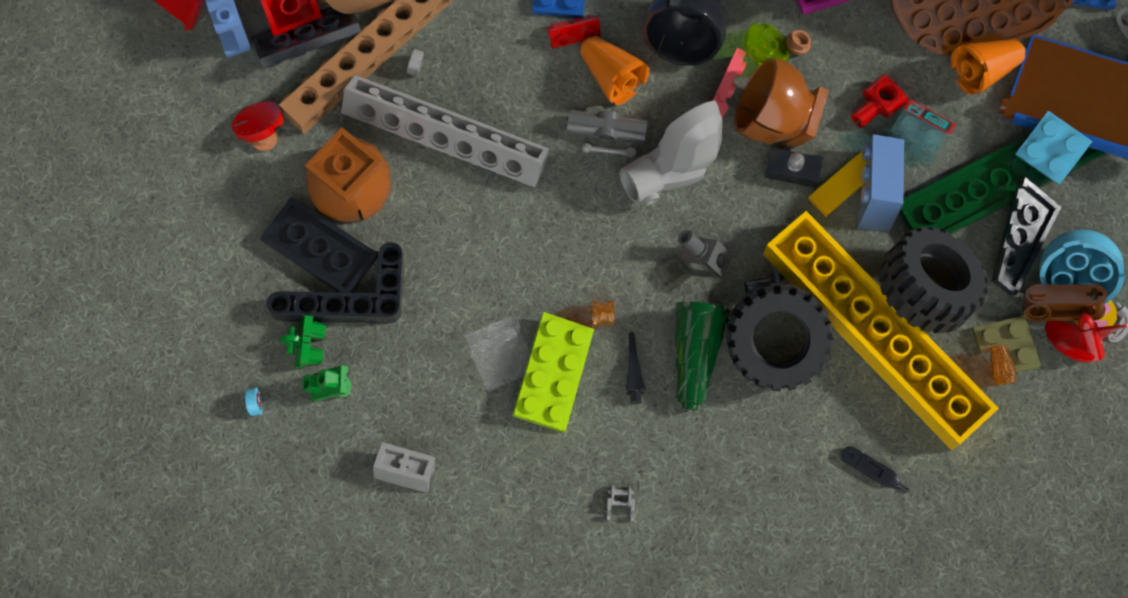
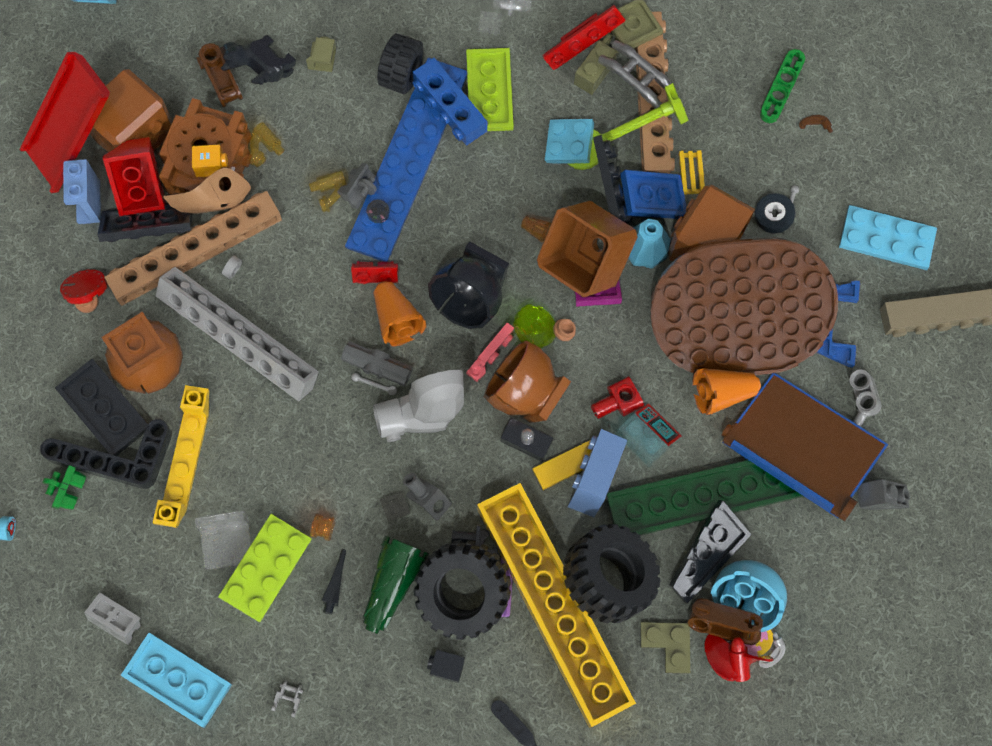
camera: 15 degrees right, 0 degrees up
(327, 383) = (71, 529): green hips -> none
(427, 275) = (185, 459): none -> yellow slope
(493, 514) = (176, 680): none -> medium azure plate
(782, 424) = (446, 666): none -> black brick
(1002, 366) = (654, 665): clear orange cone -> none
(1053, 148) = (757, 480): medium azure plate -> none

